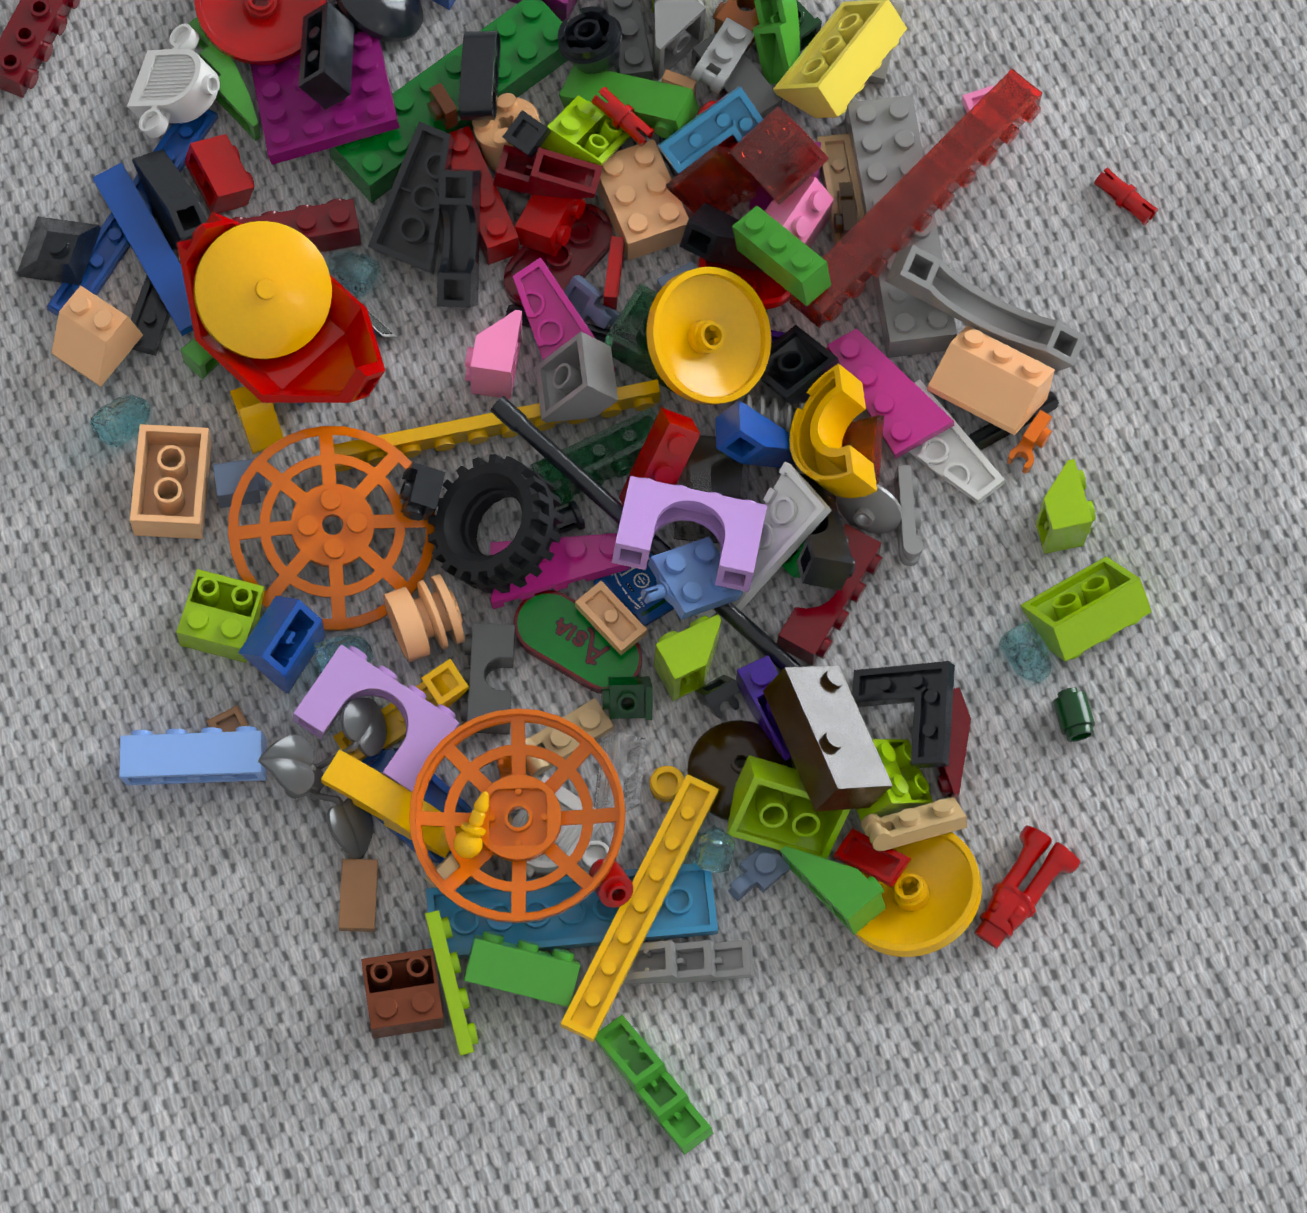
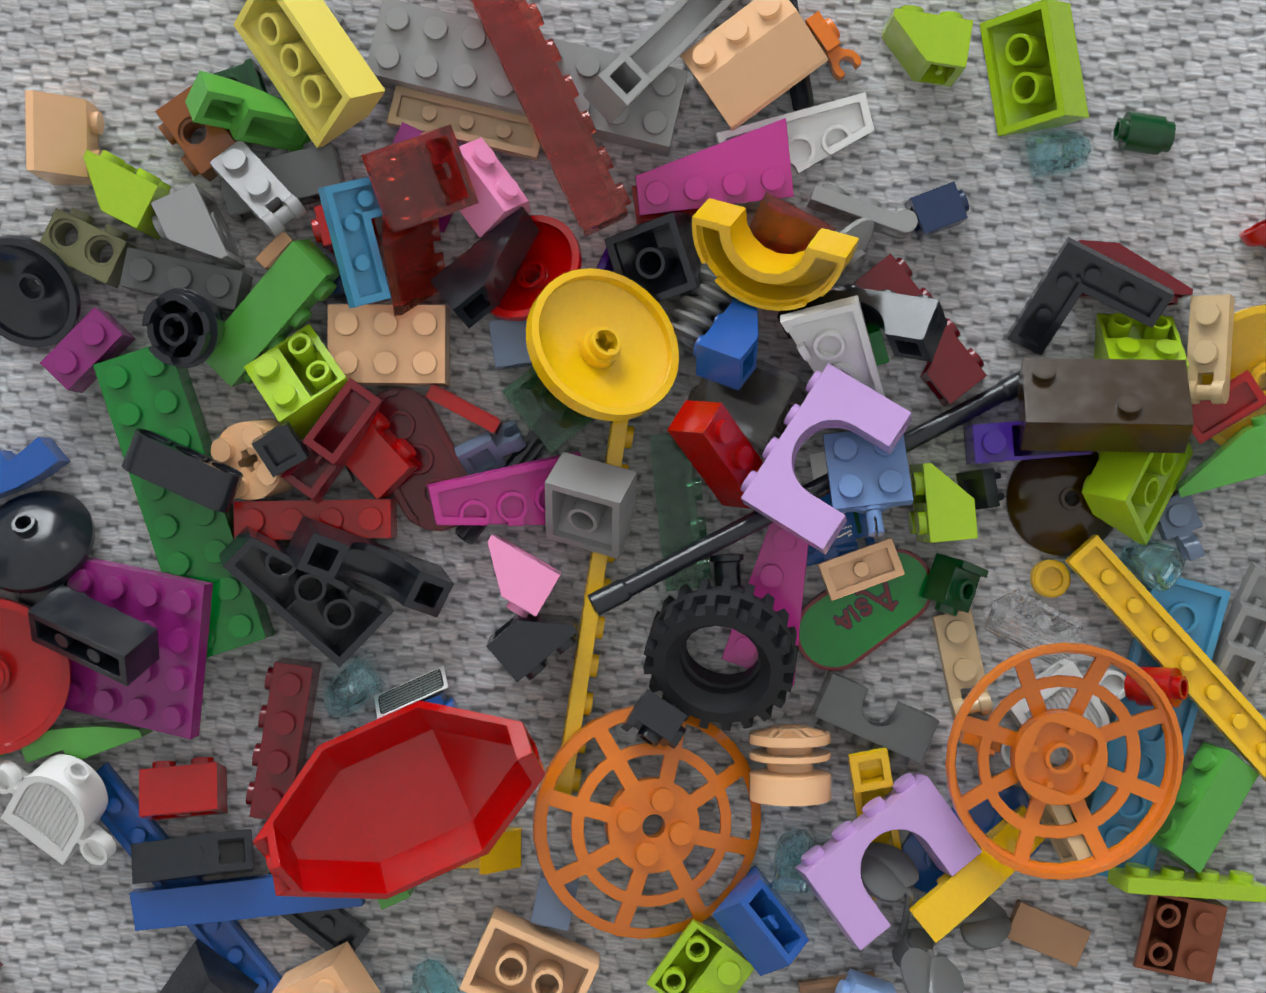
camera: 65 degrees left, 20 degrees up
(262, 290) = (359, 811): yellow dish -> none
(442, 107) = (205, 528): reddish brown plate -> none
(443, 381) = (527, 642): none -> black slope
(469, 841) = (1074, 821): yellow bar -> none
(623, 116) = (295, 330): red pin -> none
(781, 255) = (546, 226): bright green brick -> none
(846, 218) = (506, 133): dark brown plate -> none
(935, 573) = (938, 209): none -> dark blue brick

